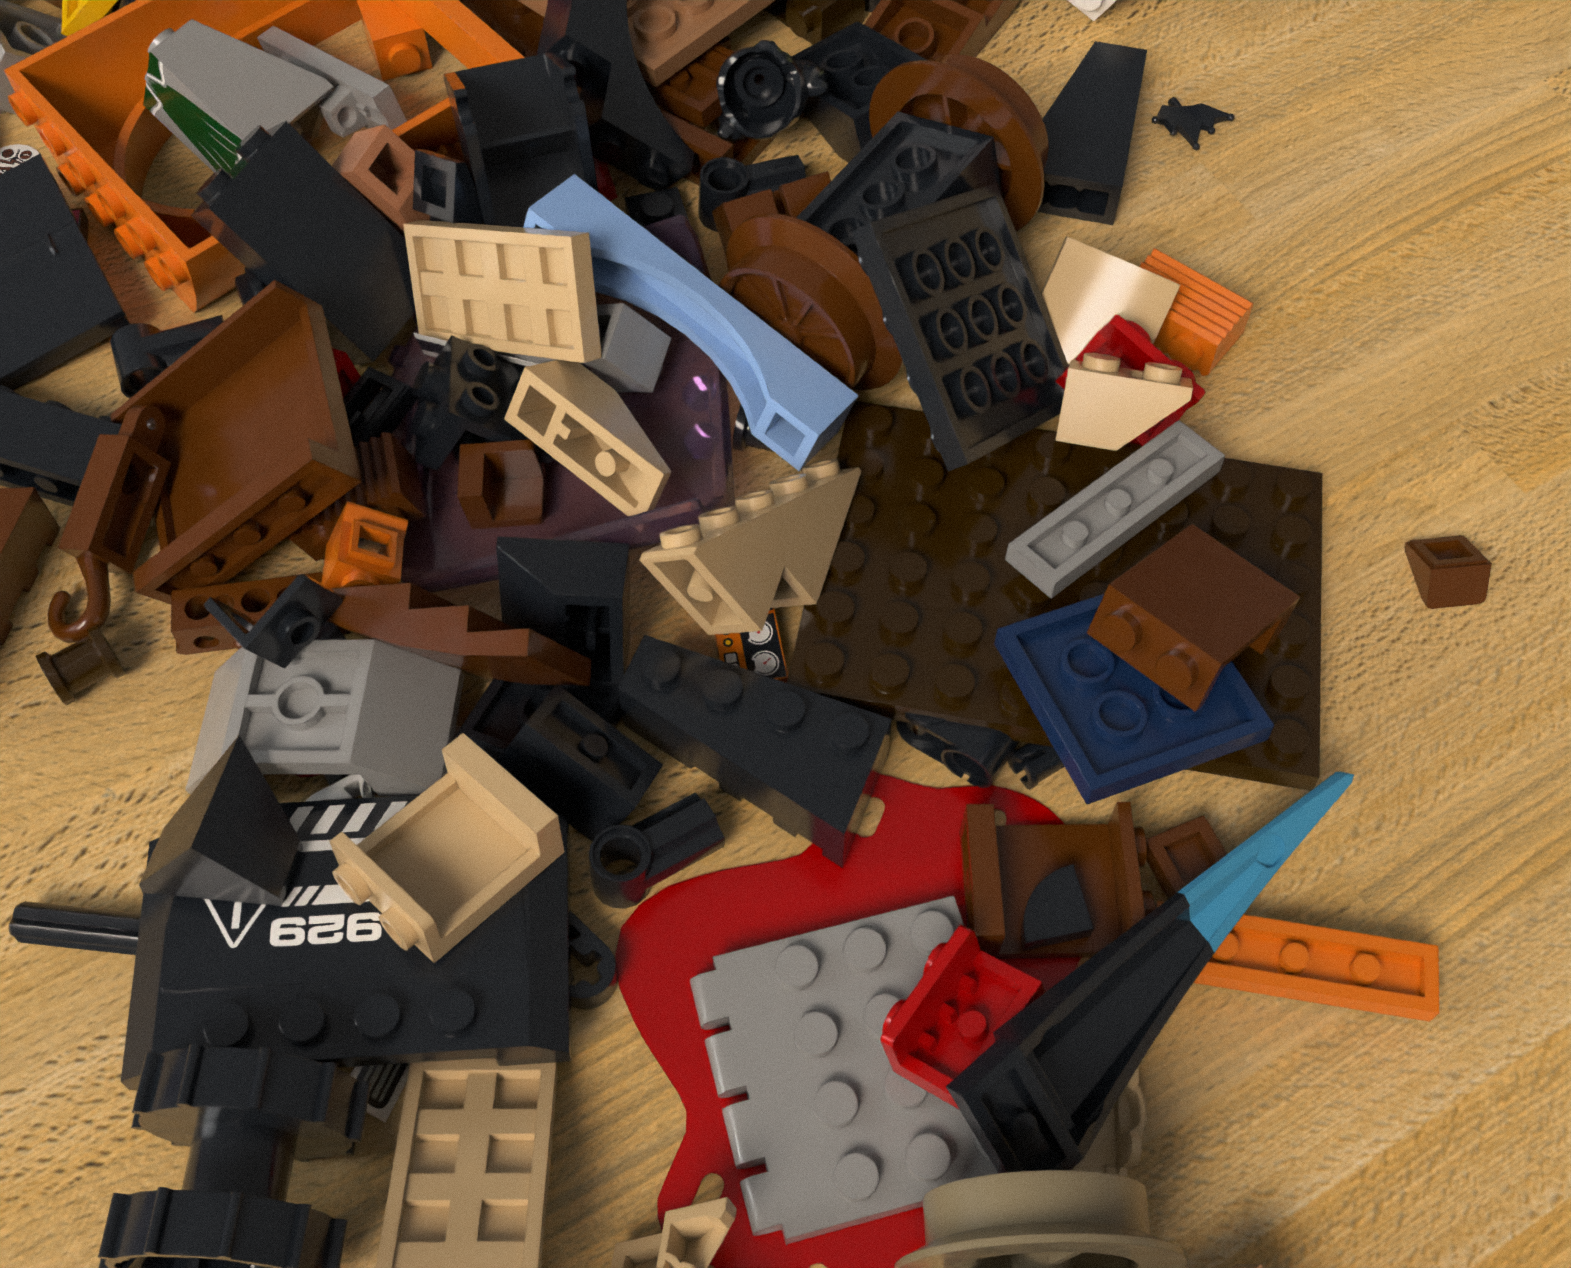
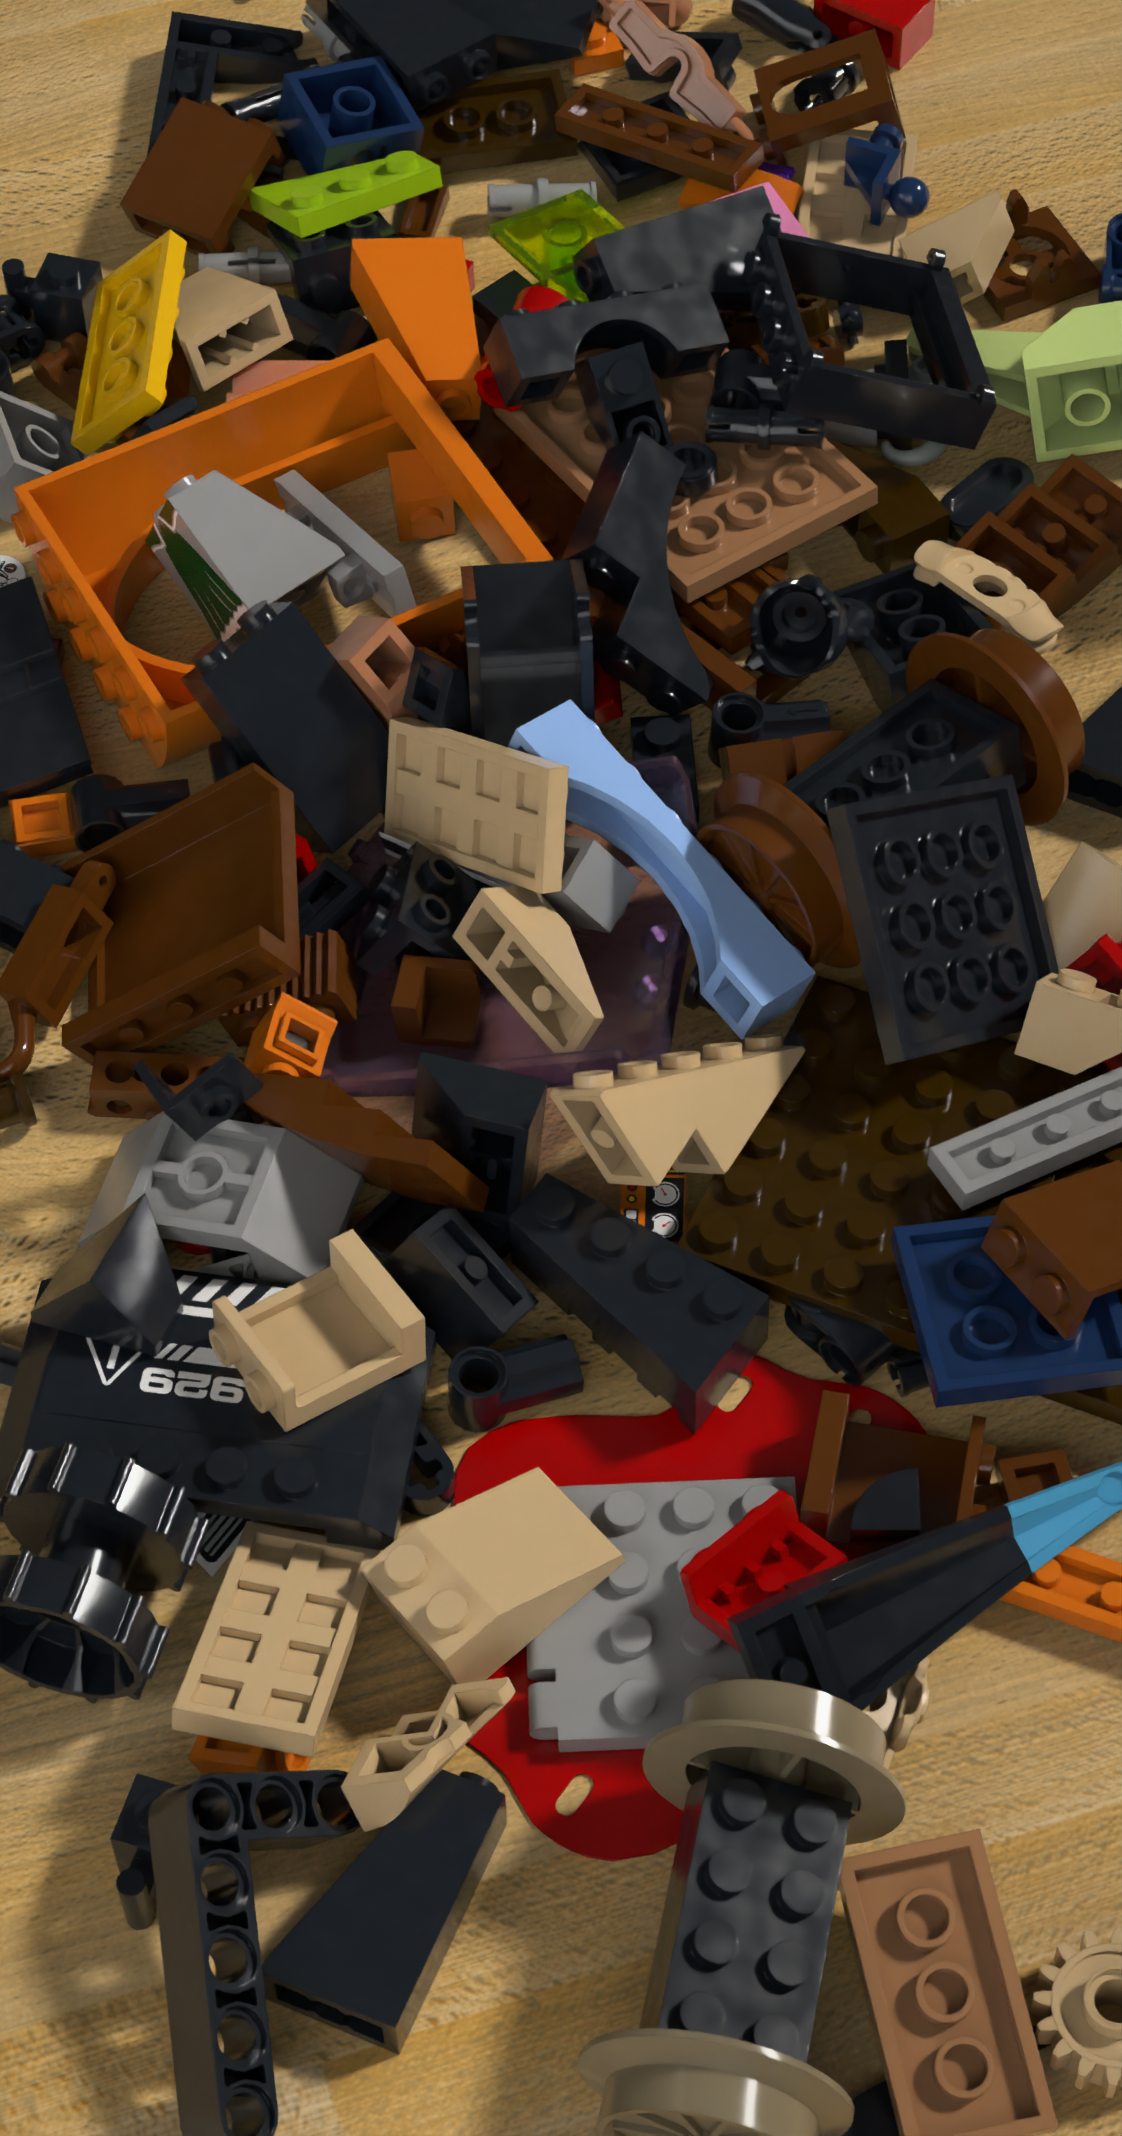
camera: 15 degrees right, 5 degrees down
(89, 381) = (43, 824): none -> orange tile
(678, 1069) = (491, 1574): none -> tan slope
(908, 31) = (1018, 608): none -> tan piece

